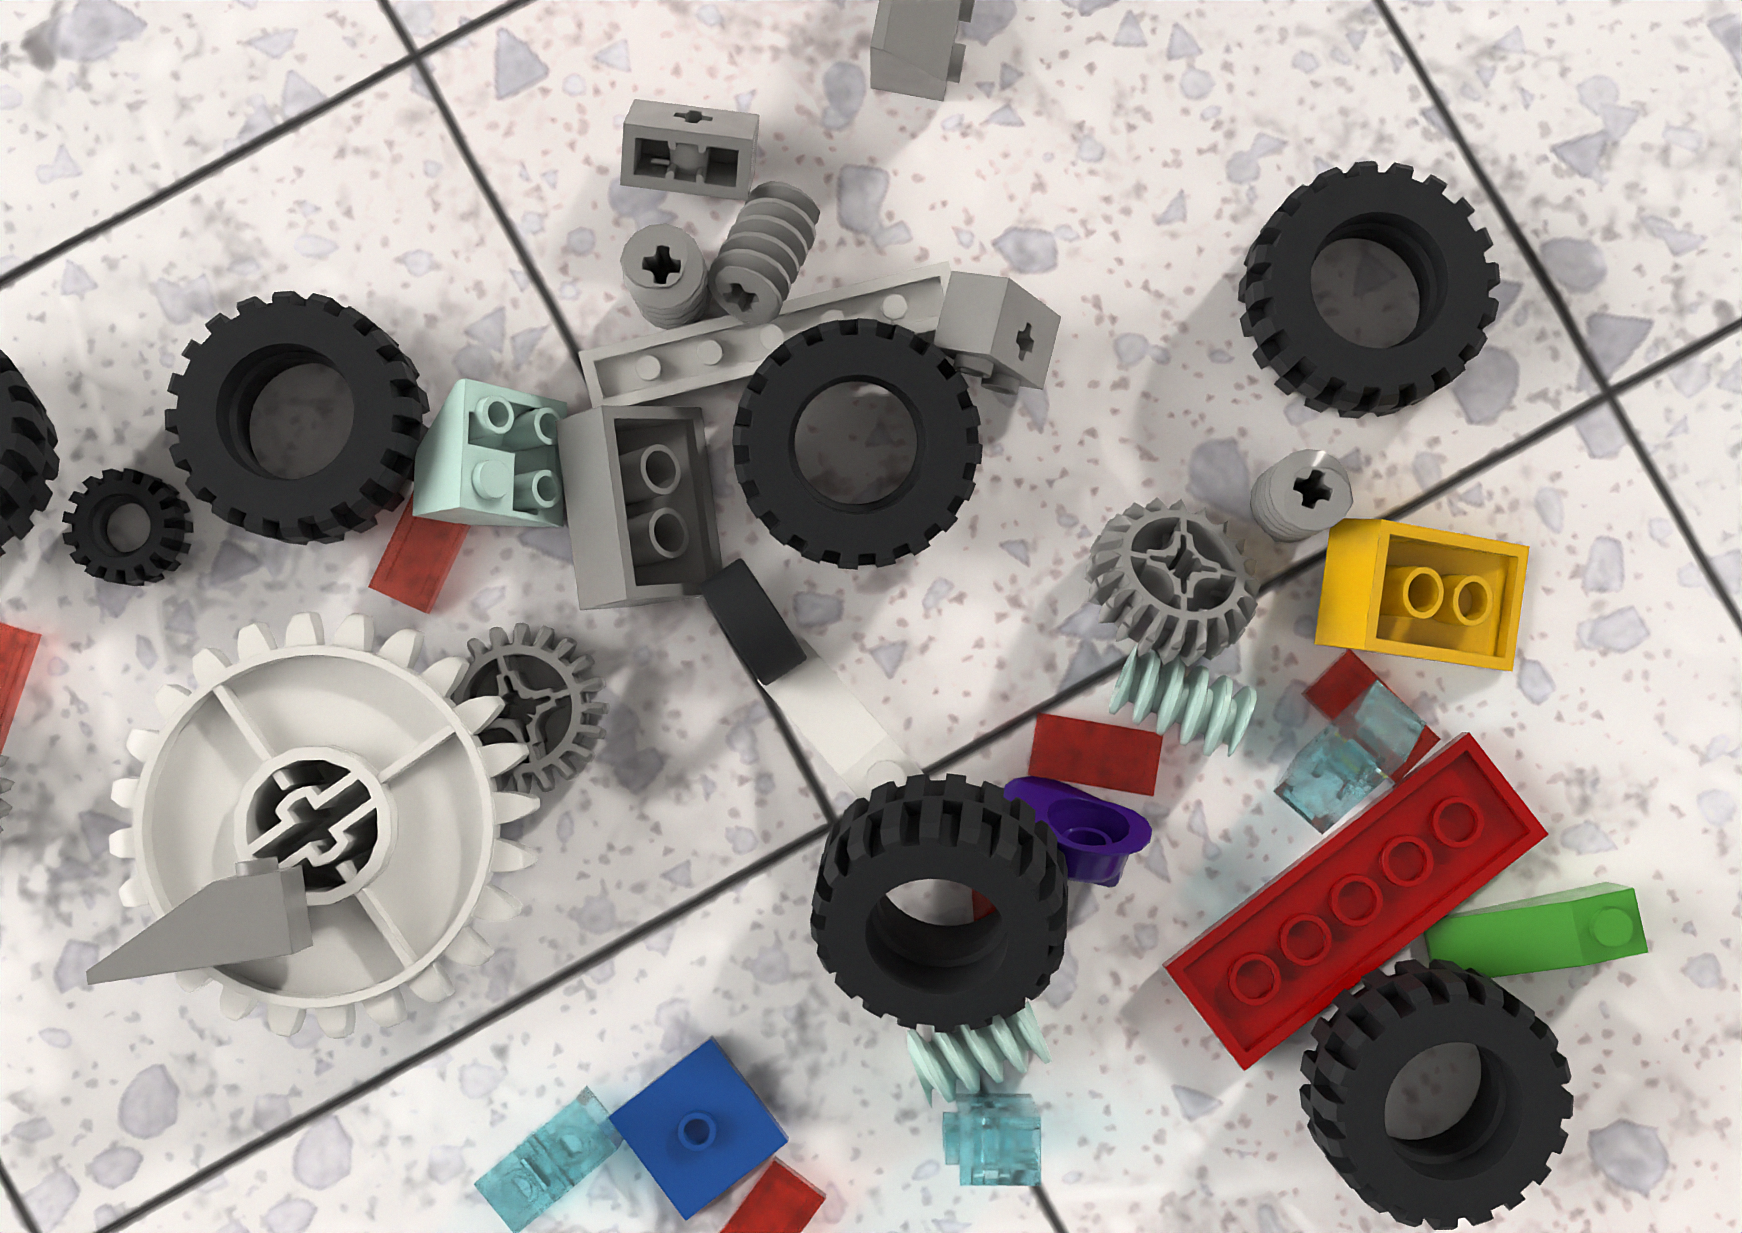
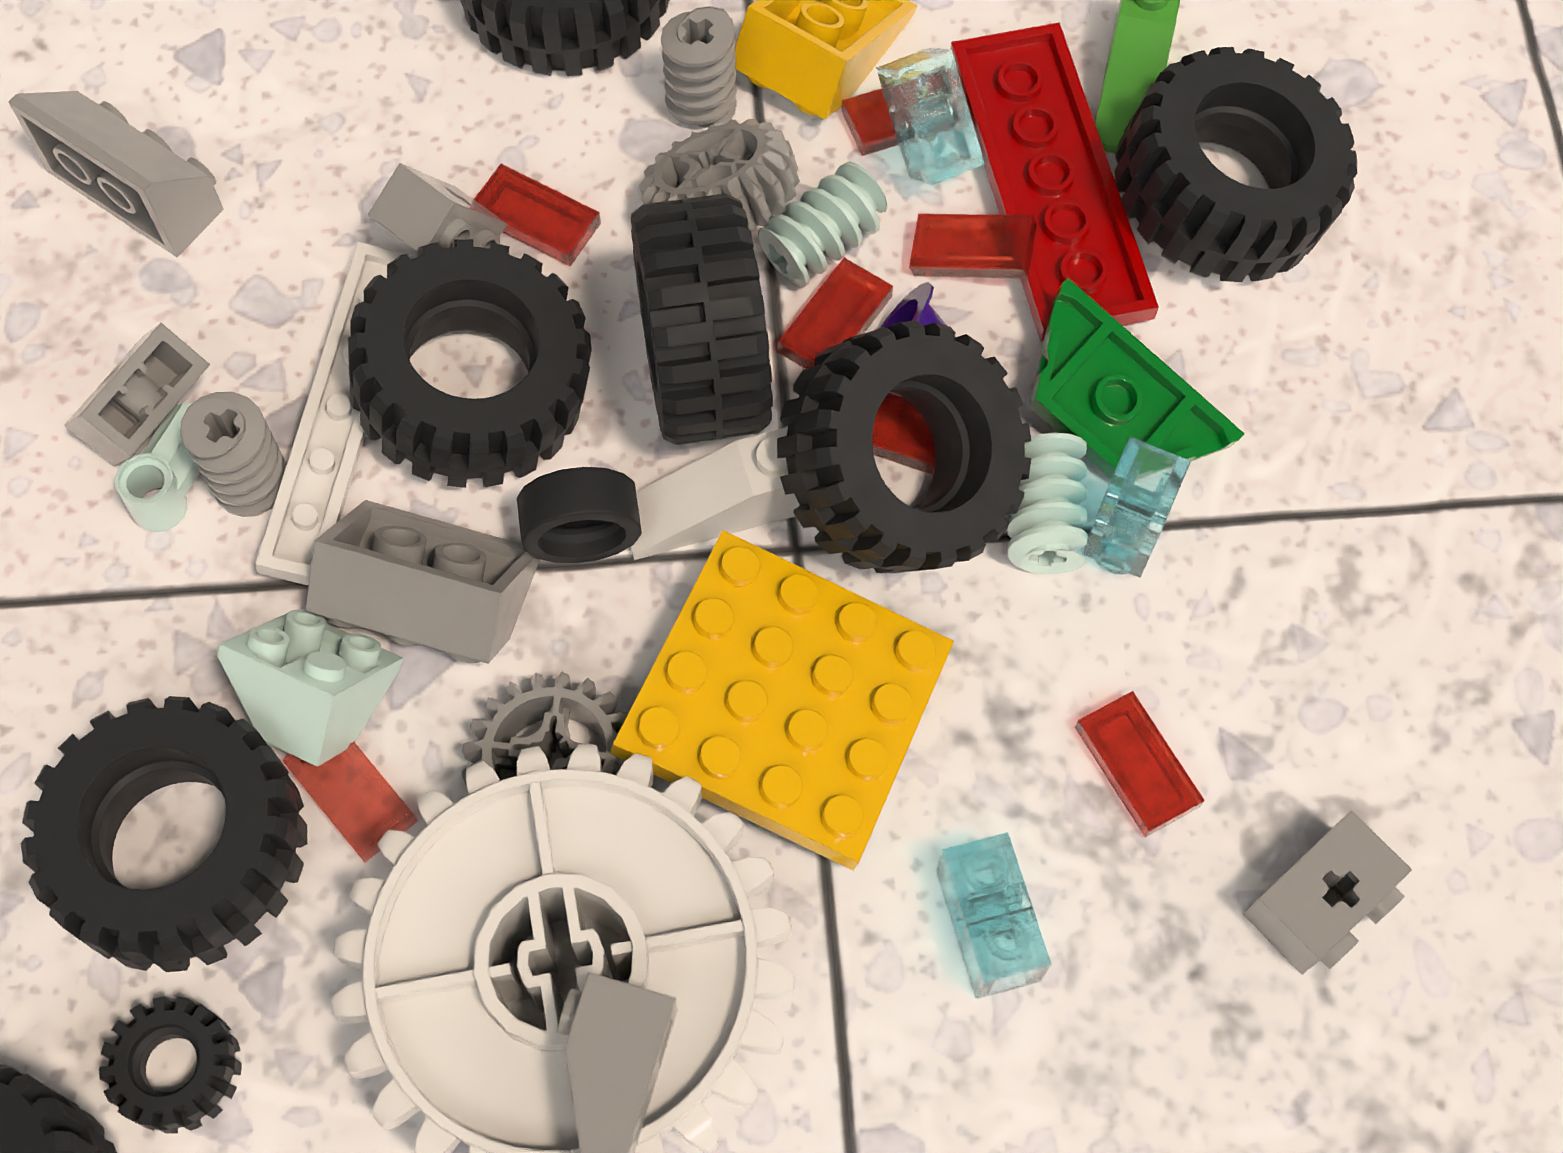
camera: 70 degrees left, 20 degrees down
(642, 209) = (161, 465): none -> light aqua piece
(668, 890) = (785, 699): none -> yellow plate
(698, 1128) = (1021, 776): blue plate -> none
(764, 252) = (264, 368): light grey piece -> none
(982, 651) = (702, 318): none -> black tyre
(1074, 408) = (539, 214): none -> clear red tile
(1125, 1068) = (1111, 387): none -> green wing
(1231, 858) = (973, 245): none -> clear red tile

